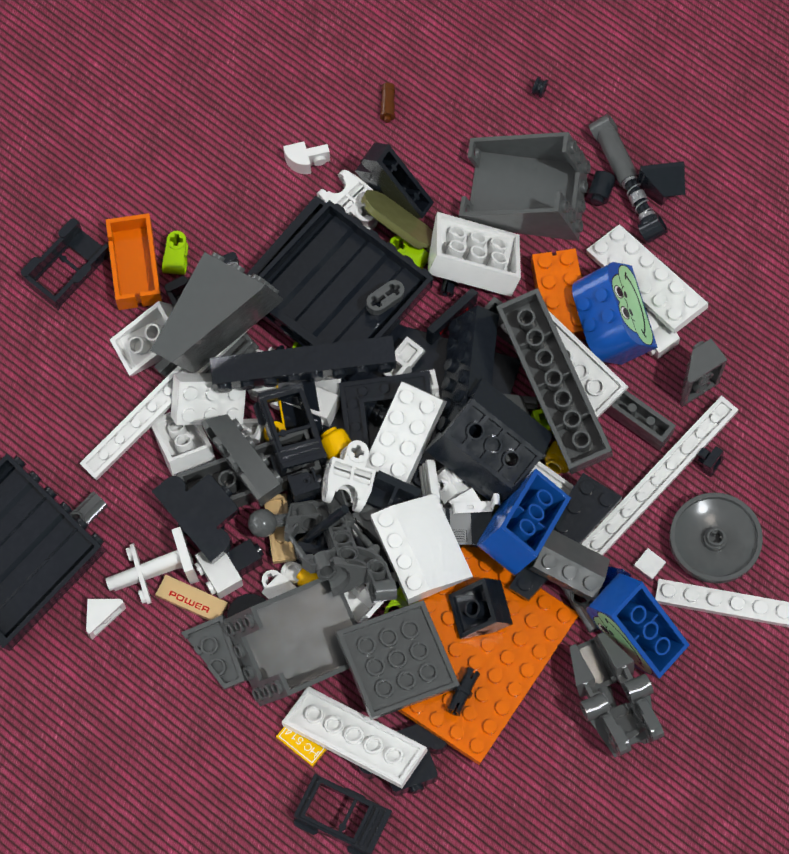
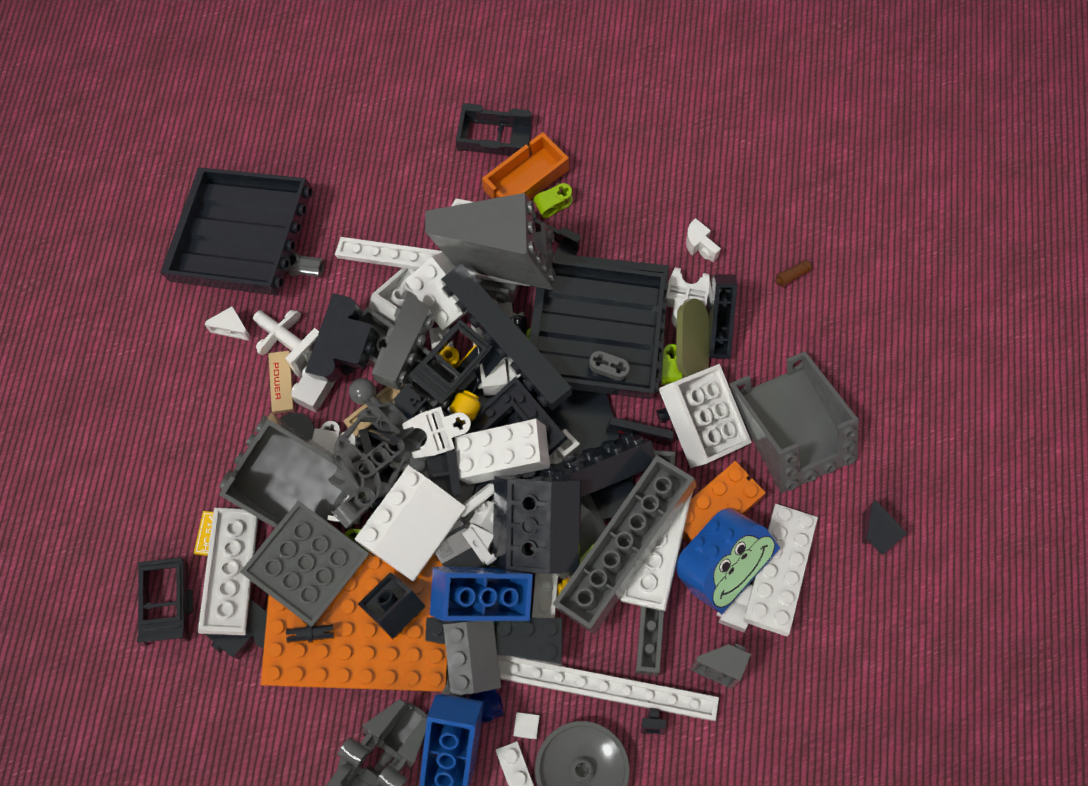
camera: 60 degrees right, 0 degrees up
(217, 651) = (245, 425): dark grey wing -> none
(246, 557) = (335, 399): black brick -> none
(406, 357) = (573, 415): white brick -> none
(540, 87) = (894, 379): black bush -> none
(601, 188) = (839, 482): black brick -> none
(606, 133) = (890, 457): piece -> none

